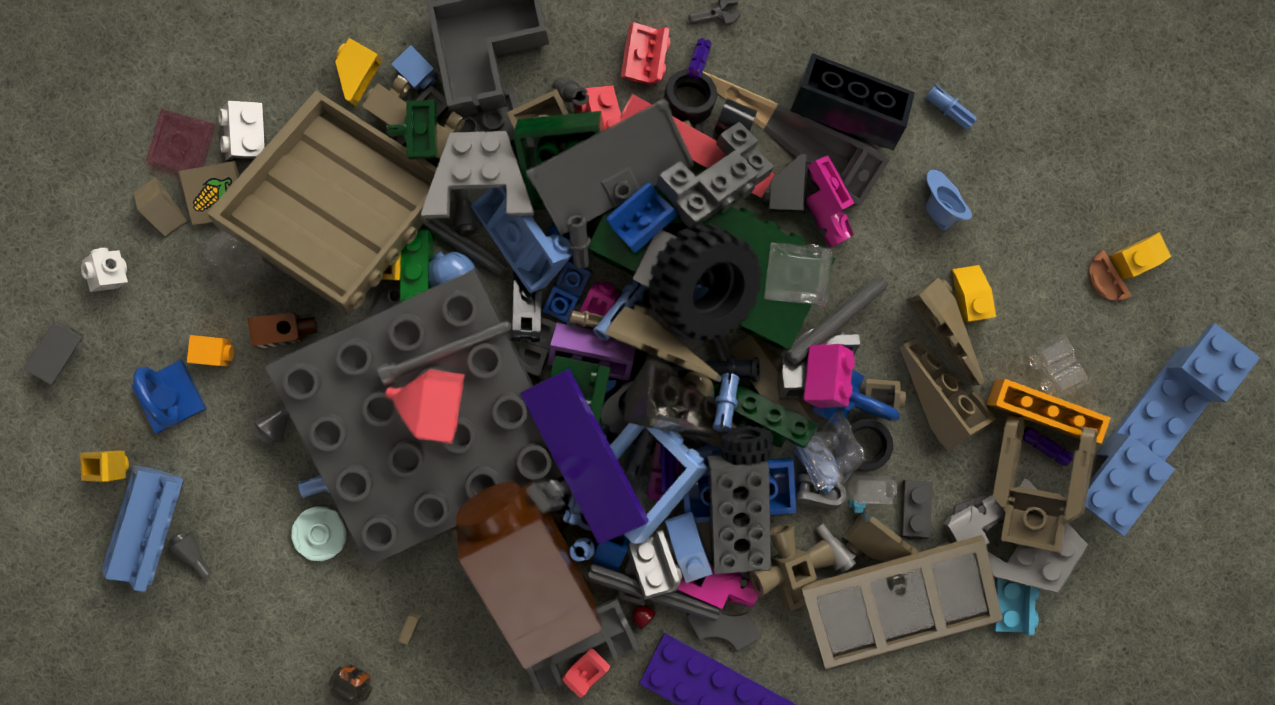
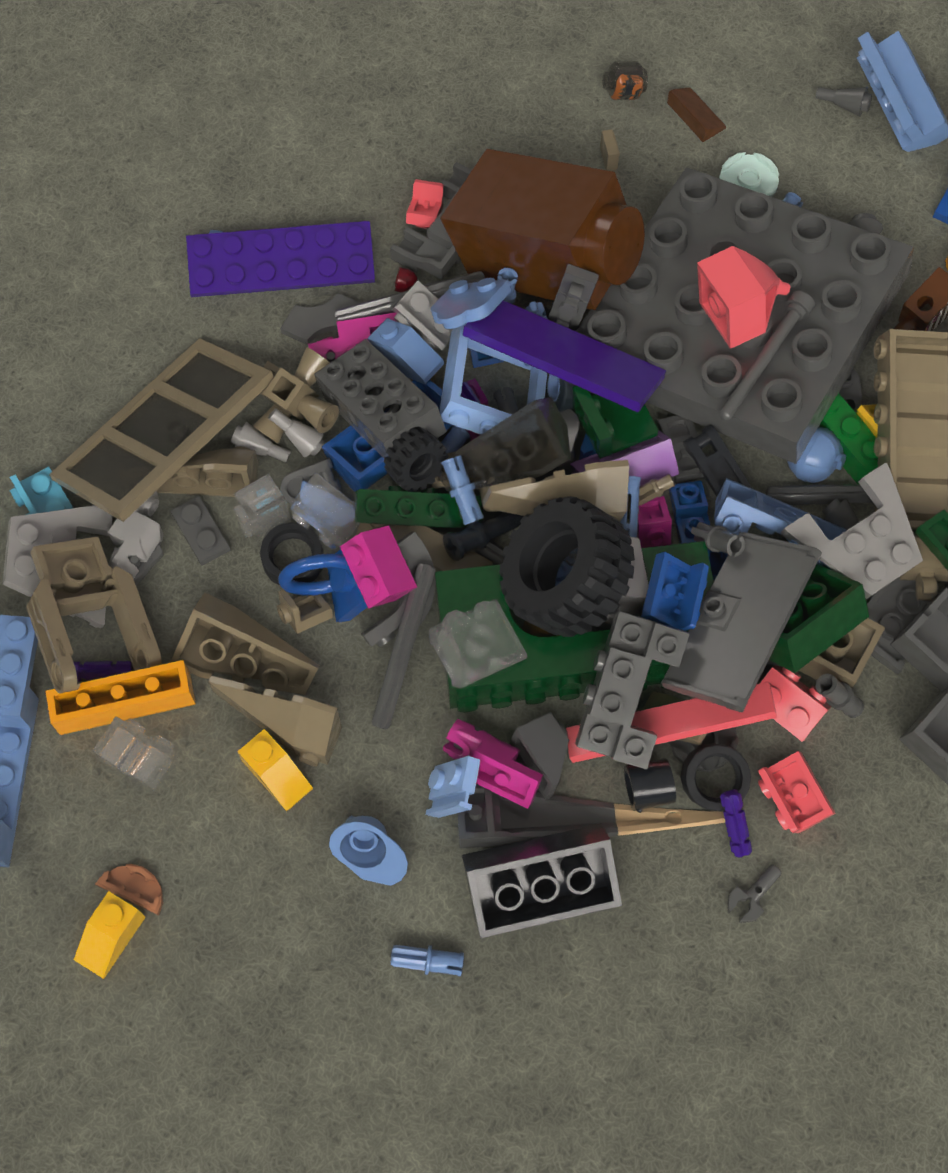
camera: 145 degrees right, 20 degrees down
(315, 620) = (695, 113): none -> reddish brown slope
(624, 547) = (469, 301): none -> medium blue plate
(805, 535) = (302, 436): none -> light grey cone
(867, 200) = (451, 786): none -> light blue plate

